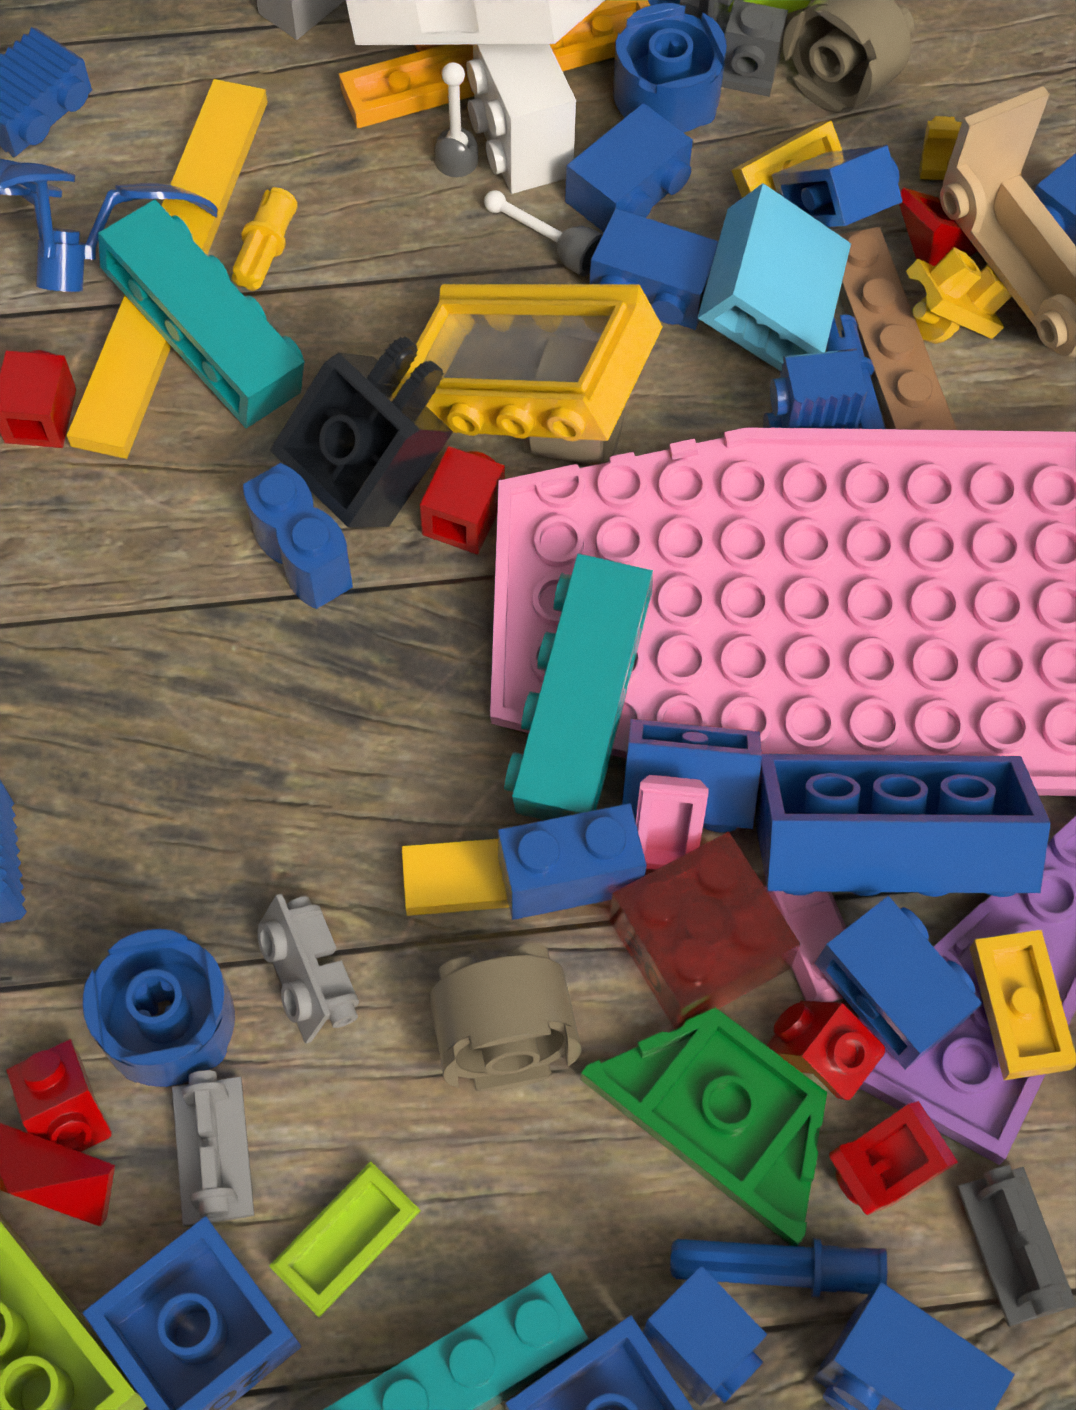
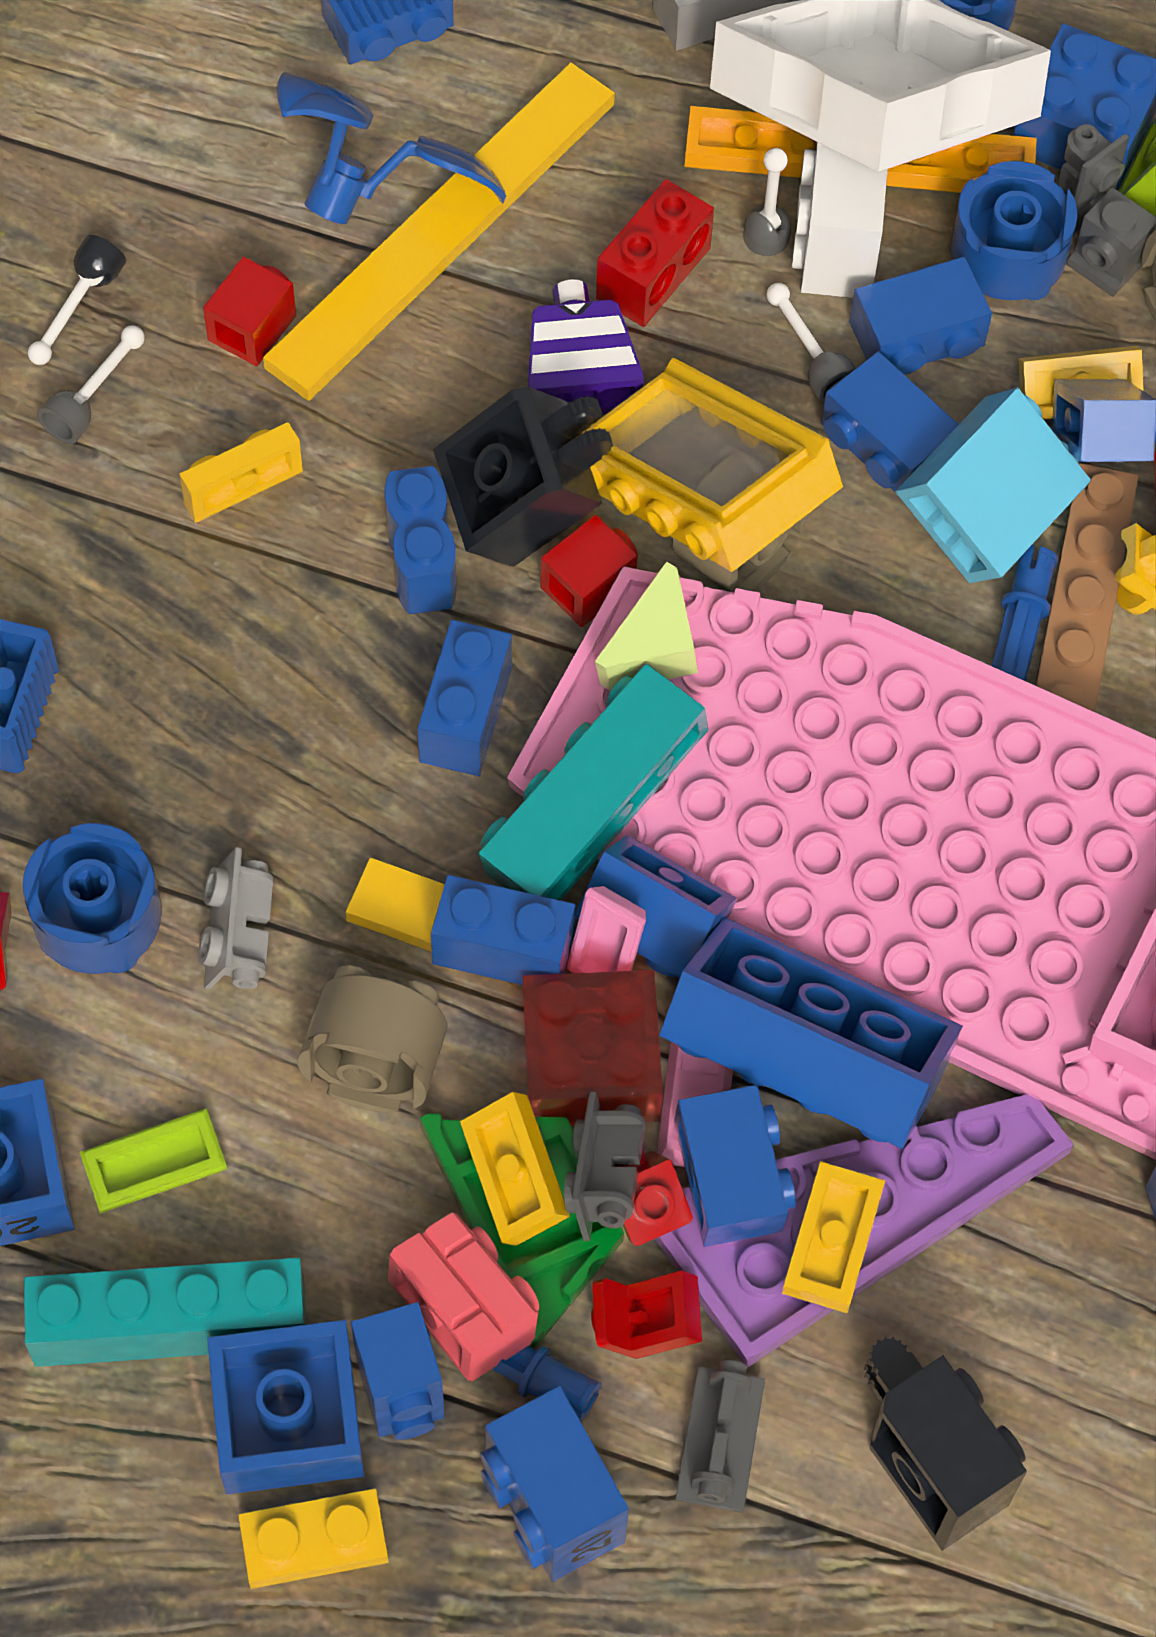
camera: 25 degrees right, 0 degrees up
(99, 545) = (241, 472): none -> yellow plate
(201, 312) = (439, 293): teal brick -> none
(212, 1149) = (82, 1035): light grey hinge -> none
(264, 238) = (536, 242): yellow axle -> none
(354, 308) = (582, 349): none -> dark purple torso
(373, 205) = (655, 252): none -> red brick
(414, 660) = (465, 698): none -> blue brick
(567, 525) = (651, 634): none -> yellowish green slope
(703, 1082) = (514, 1168): none -> yellow plate
(730, 1229) = (464, 1295): none -> coral brick
(799, 1063) = (597, 1187): none -> dark grey hinge
(818, 391) = (961, 611): blue brick -> none

